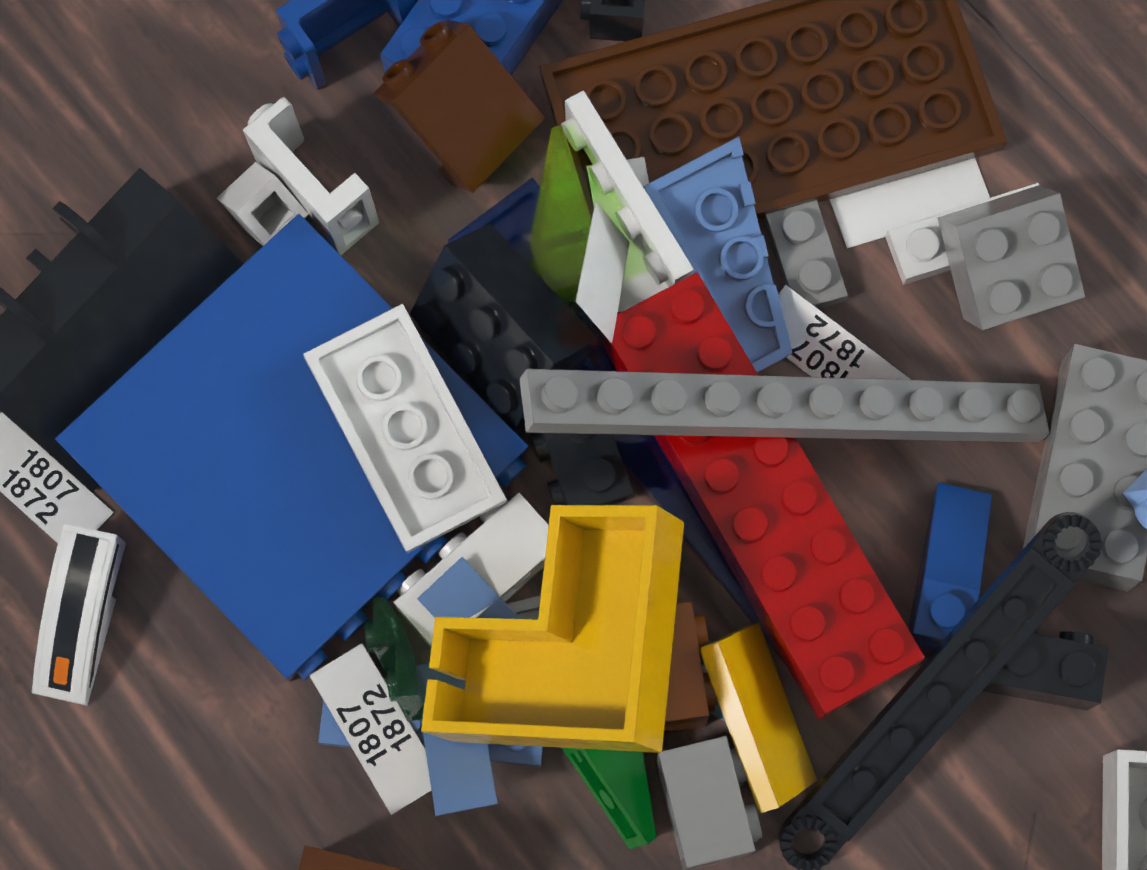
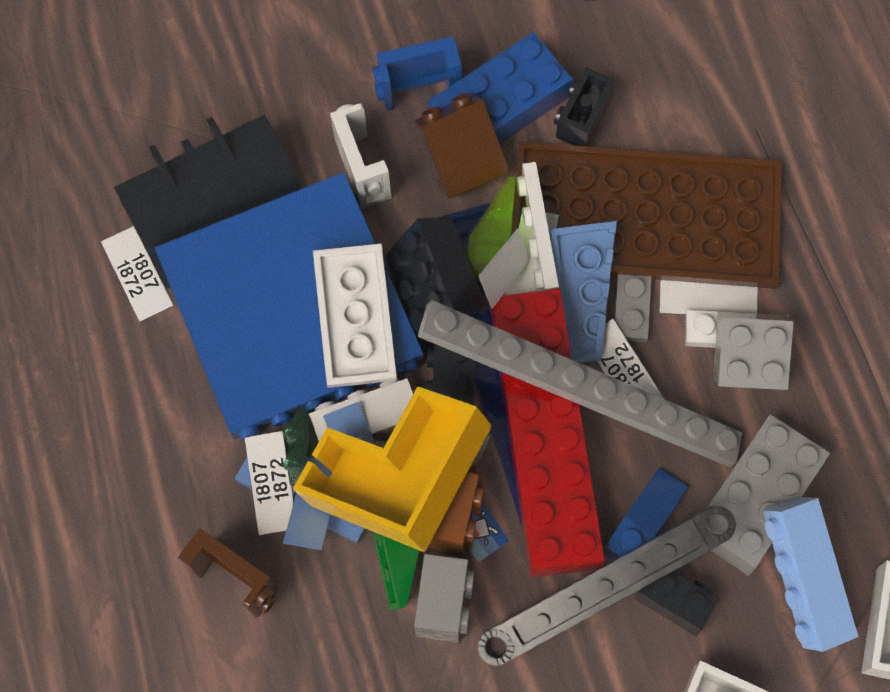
camera: 20 degrees right, 5 degrees down
(76, 613) = (128, 352): white slope -> none
(260, 203) = (326, 160): white brick -> none
(758, 717) = (494, 559): yellow tile -> none

